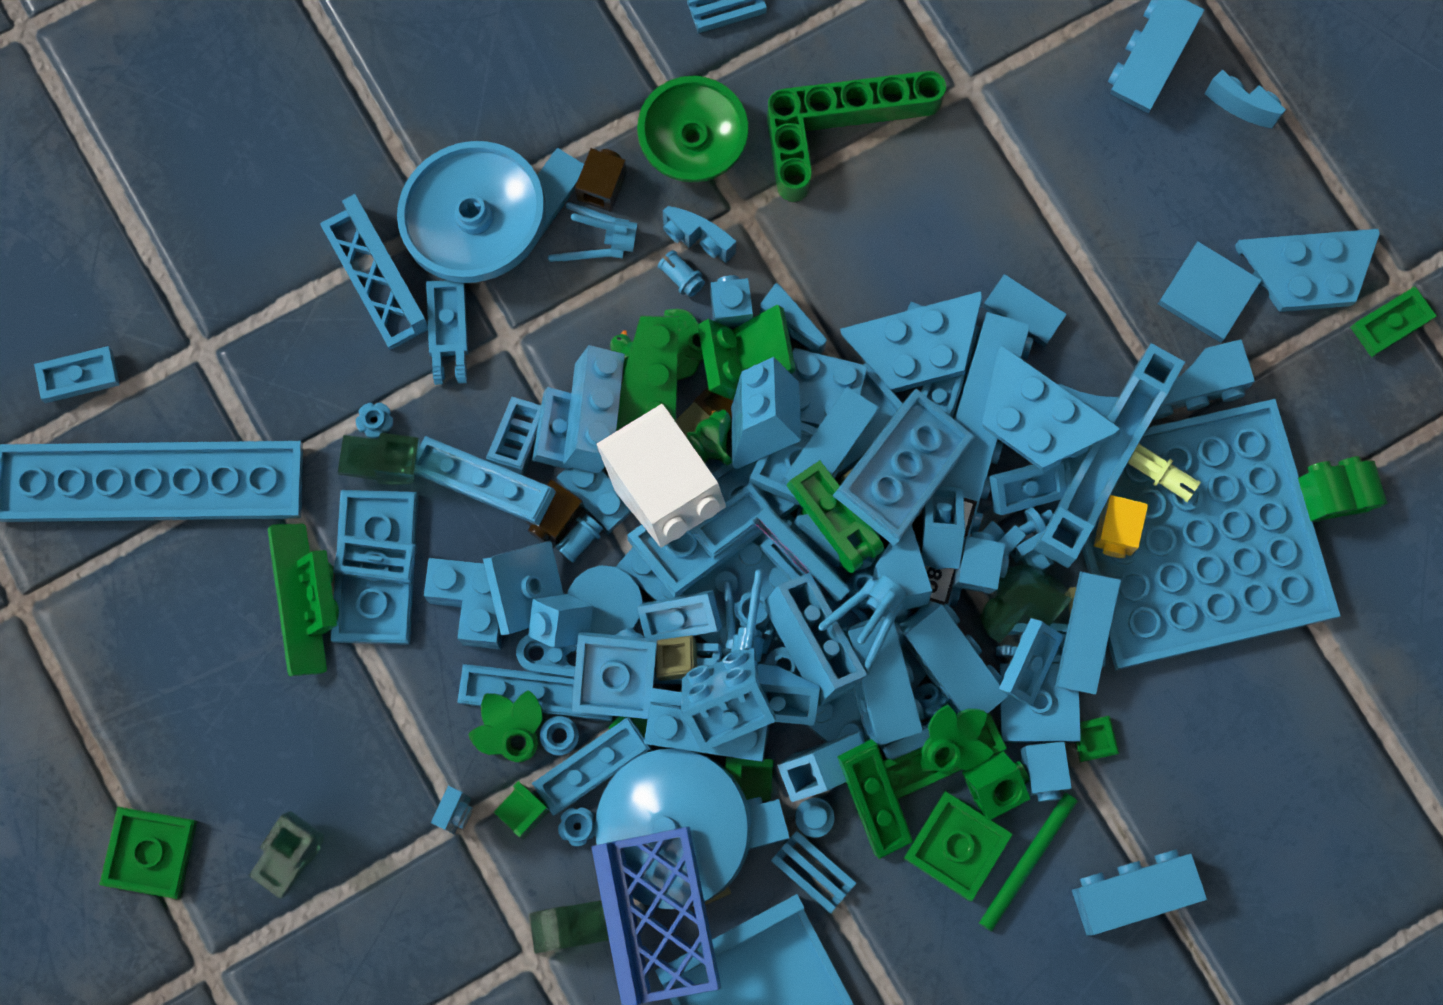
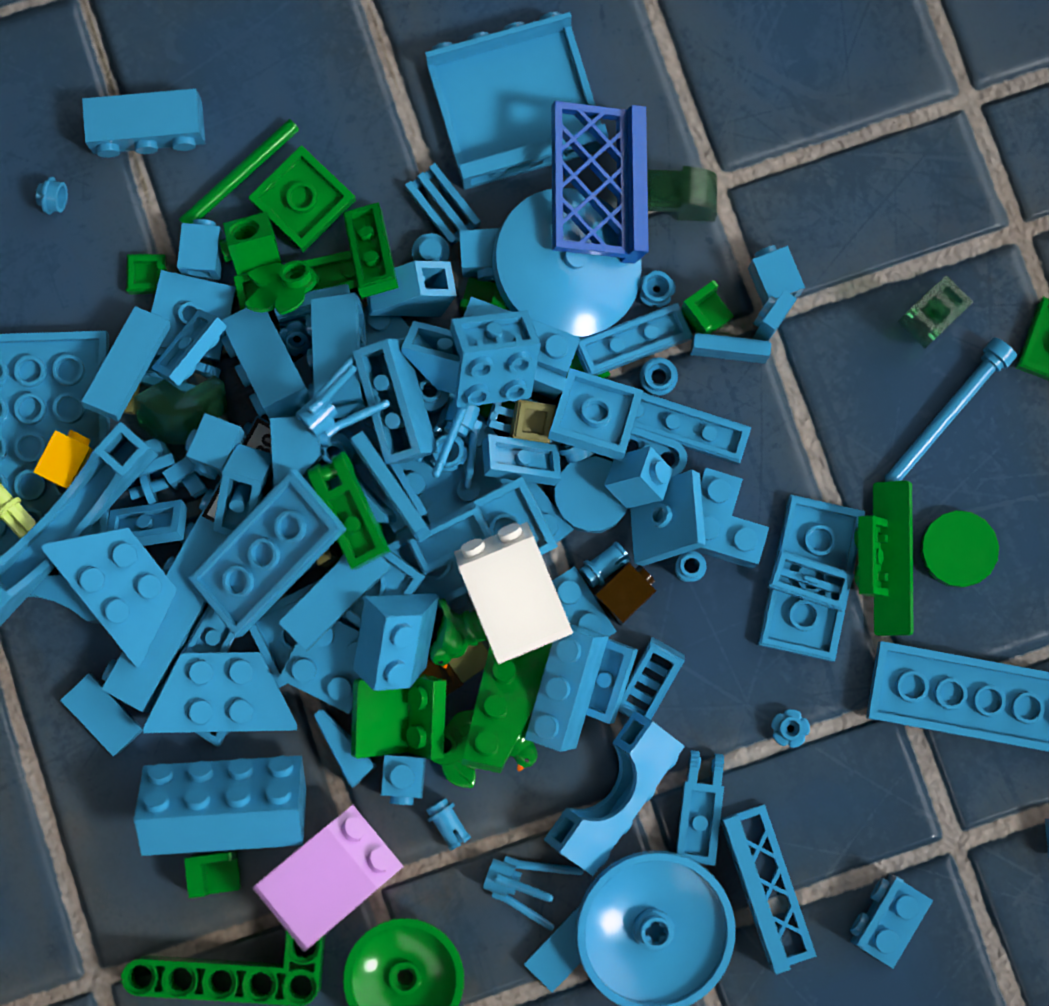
camera: 170 degrees left, 5 degrees up
(219, 822) = (996, 356): none -> dark azure piece
(232, 623) = (959, 549): none -> green tile
(255, 267) = (890, 920): none -> dark azure bracket
(386, 459) = (791, 681): clear green brick -> none
(457, 862) = (775, 272): none -> dark azure brick
(483, 481) = (692, 638): dark azure tile -> none
(489, 539) = (696, 560): none -> dark azure pin
(491, 776) = (730, 348): none -> dark azure tile
(504, 721) = (707, 397): green plate -> none
(548, 285) = (592, 832): none -> dark azure arch
(601, 179) = (511, 946): dark brown brick -> none
(689, 227) = (433, 873): dark azure slope -> none
(780, 197) = (328, 877): none -> lavender slope
(889, 191) = (212, 873): none -> green panel
(892, 242) = (221, 805): none -> dark azure brick
(1210, 798) = (52, 195): none -> dark azure plate

